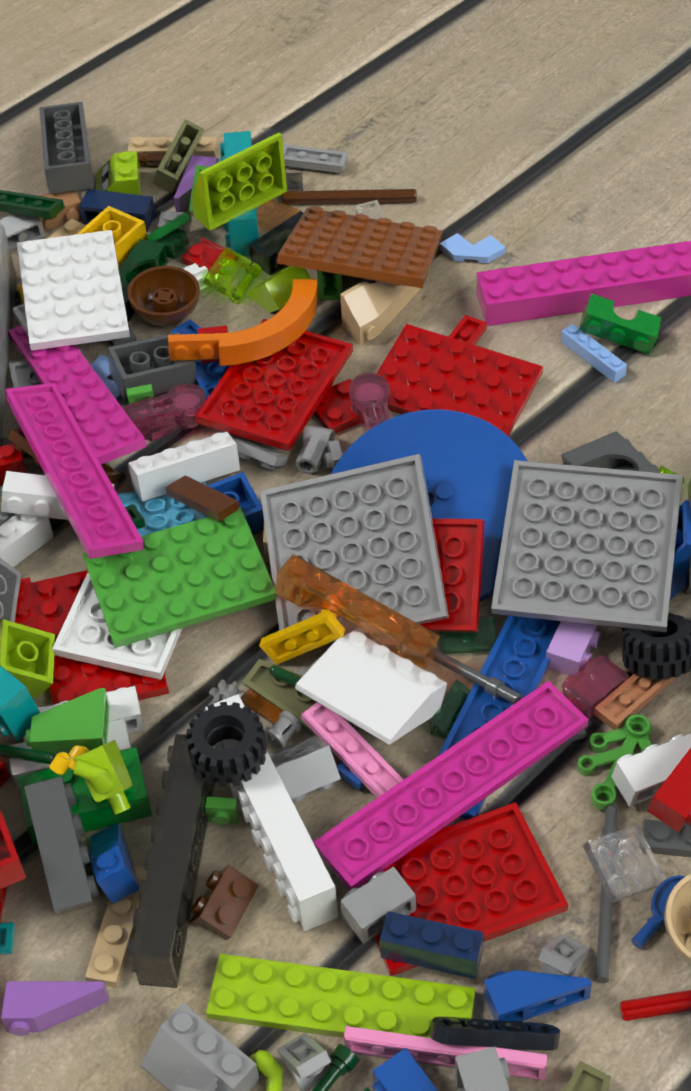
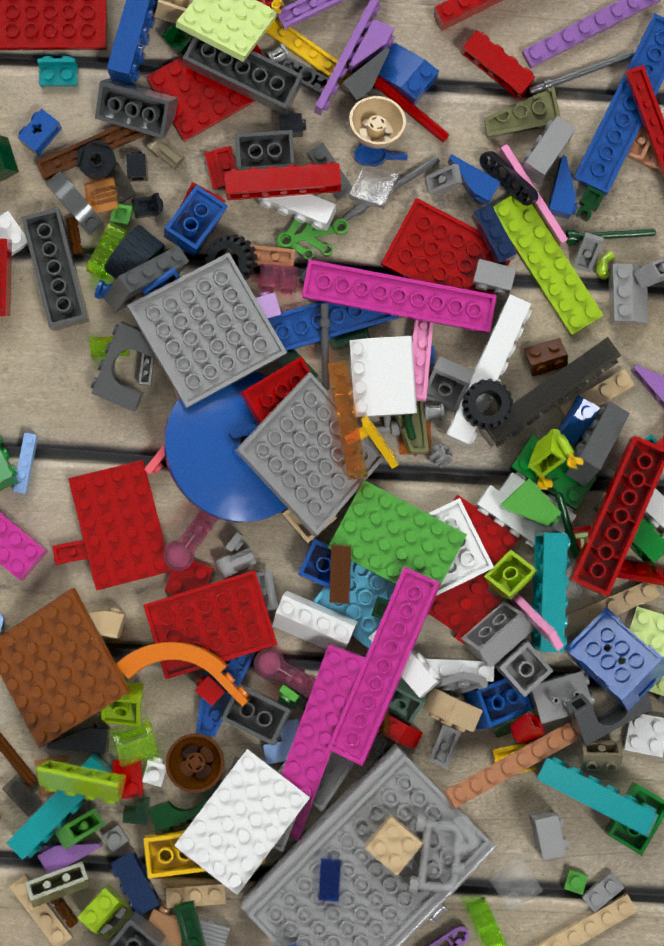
camera: 145 degrees left, 35 degrees up
(169, 227) = (127, 826): green tile -> none

